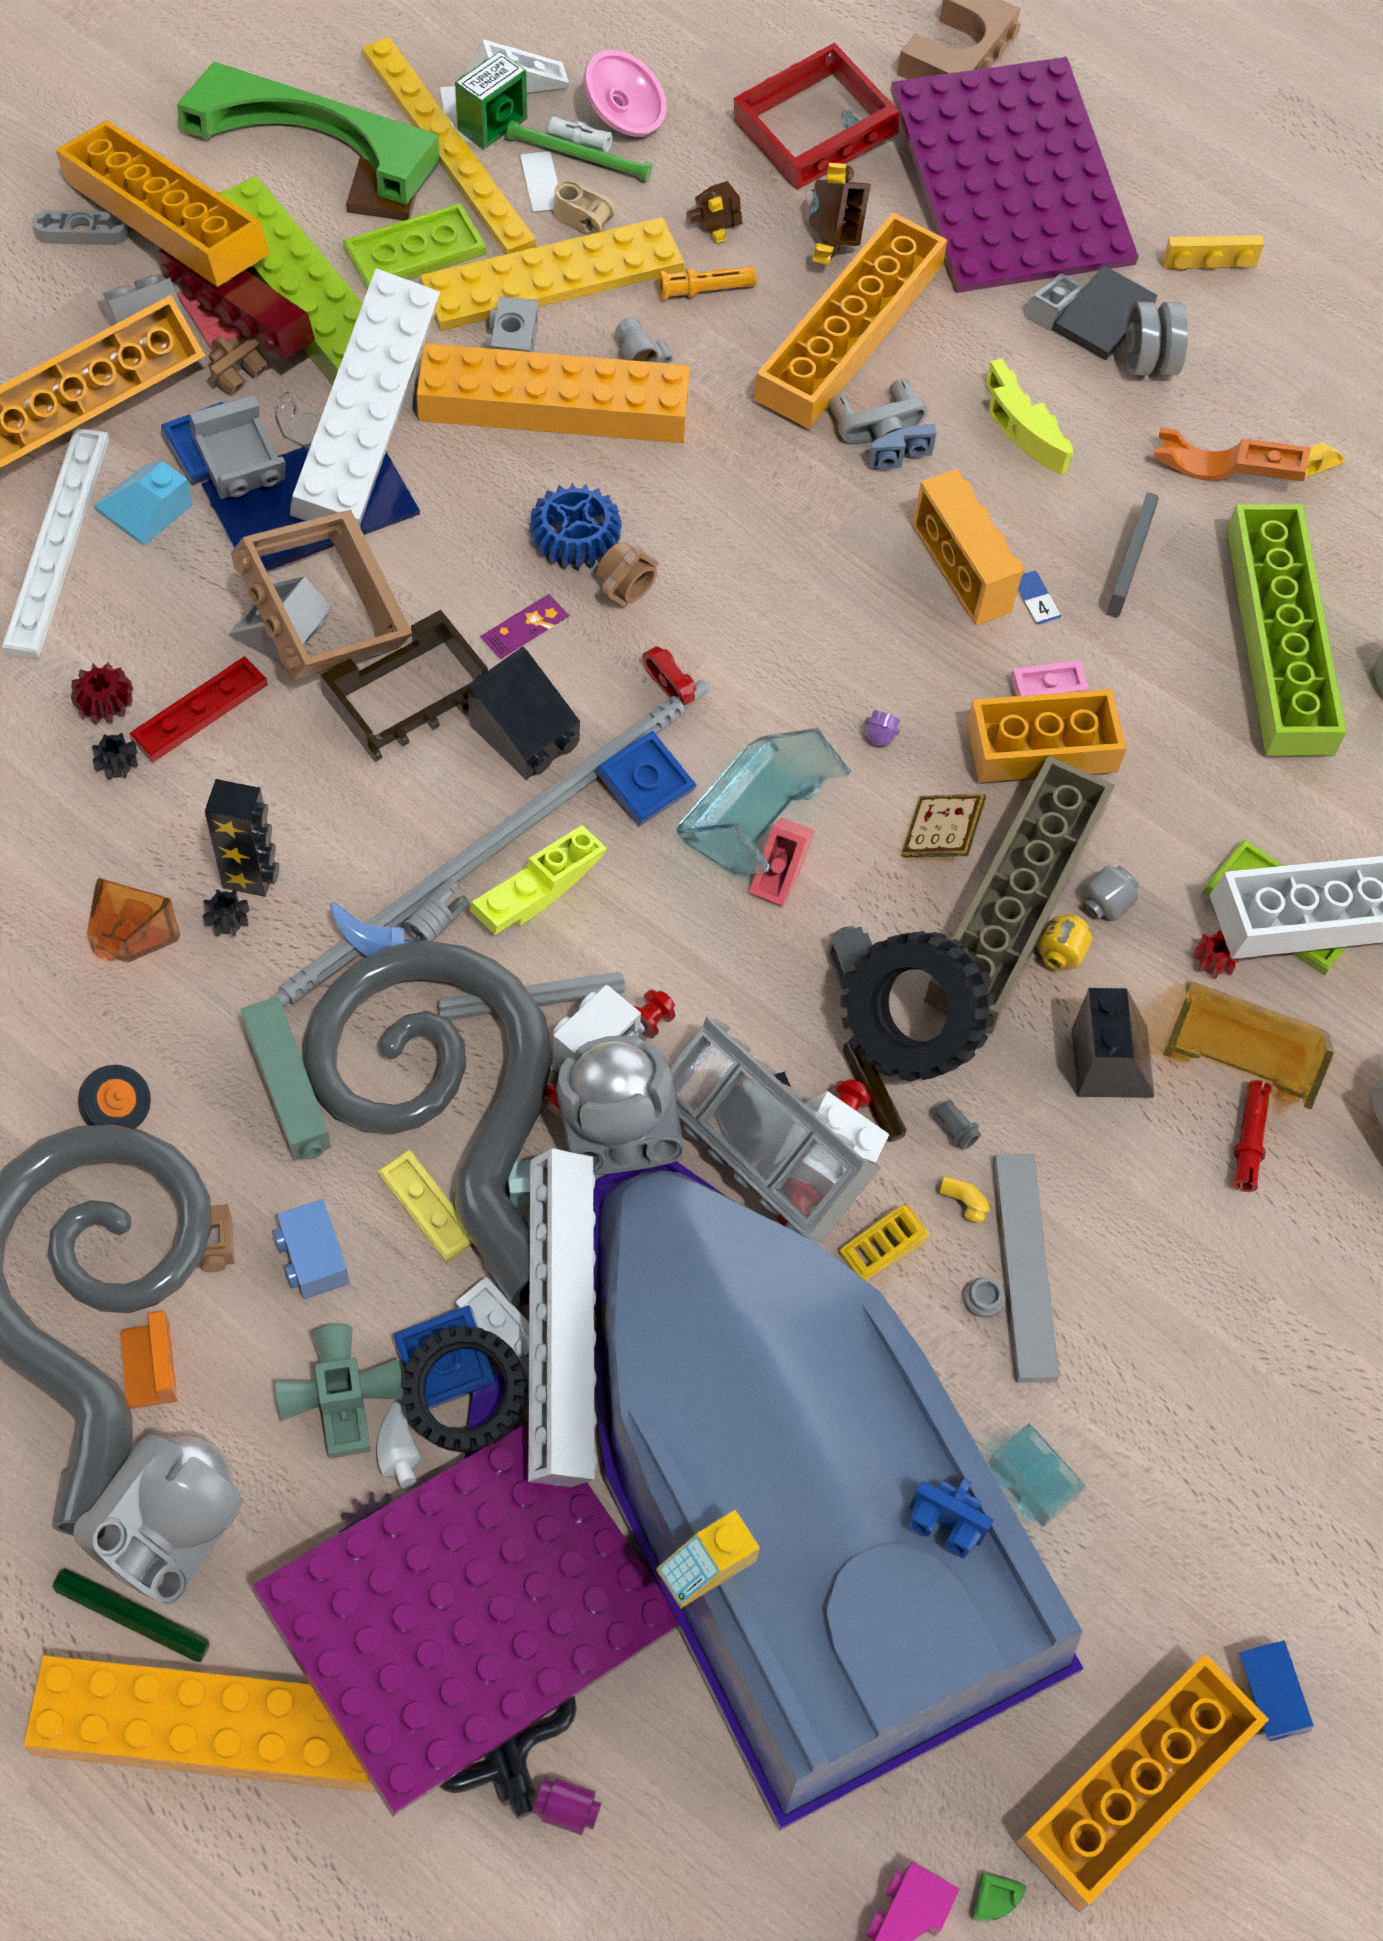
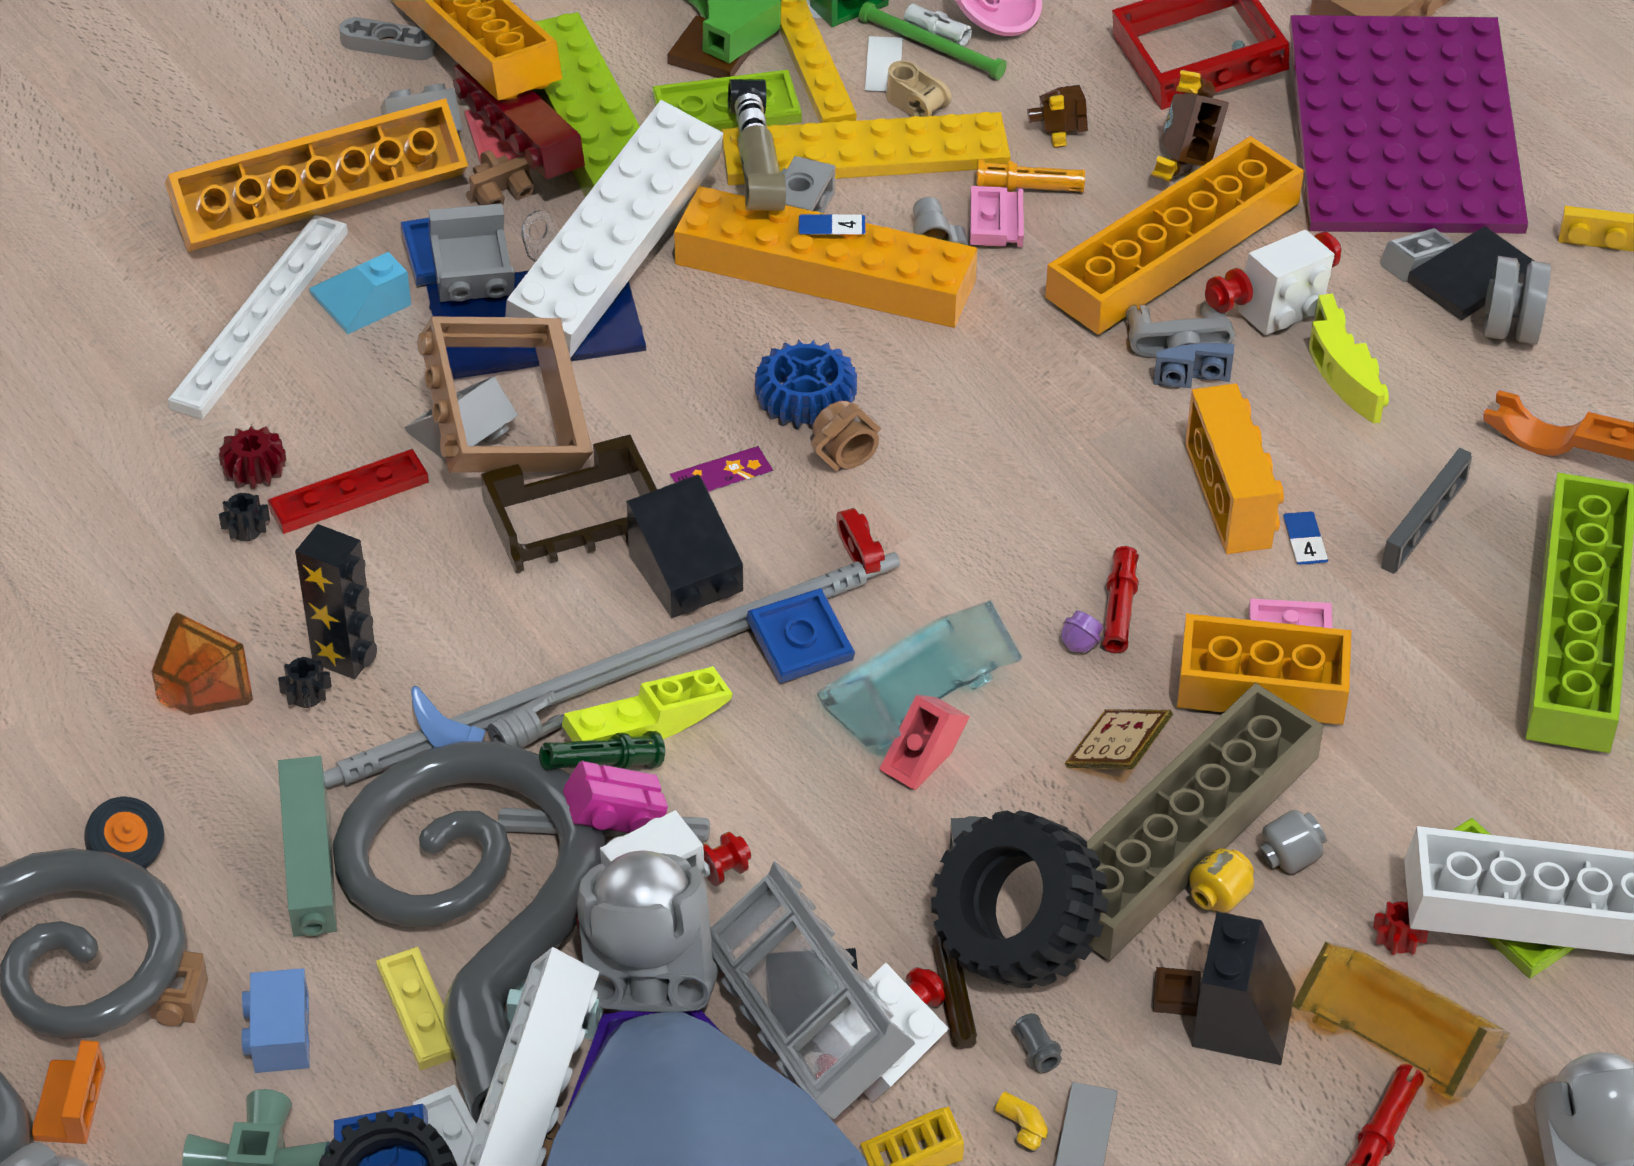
camera: 20 degrees right, 15 degrees down
(489, 339) = (763, 182): none -> dark tan piece
(528, 927) = (618, 751): none -> dark green pin
(546, 980) = (613, 797): none -> dark pink brick
(557, 364) = (831, 224): none -> sticker
(689, 325) = (996, 216): none -> bright pink plate
(902, 676) = (1121, 587): none -> red pin
(956, 354) = (1278, 281): none -> white brick
(1053, 1050) = (1176, 991): none -> reddish brown tile

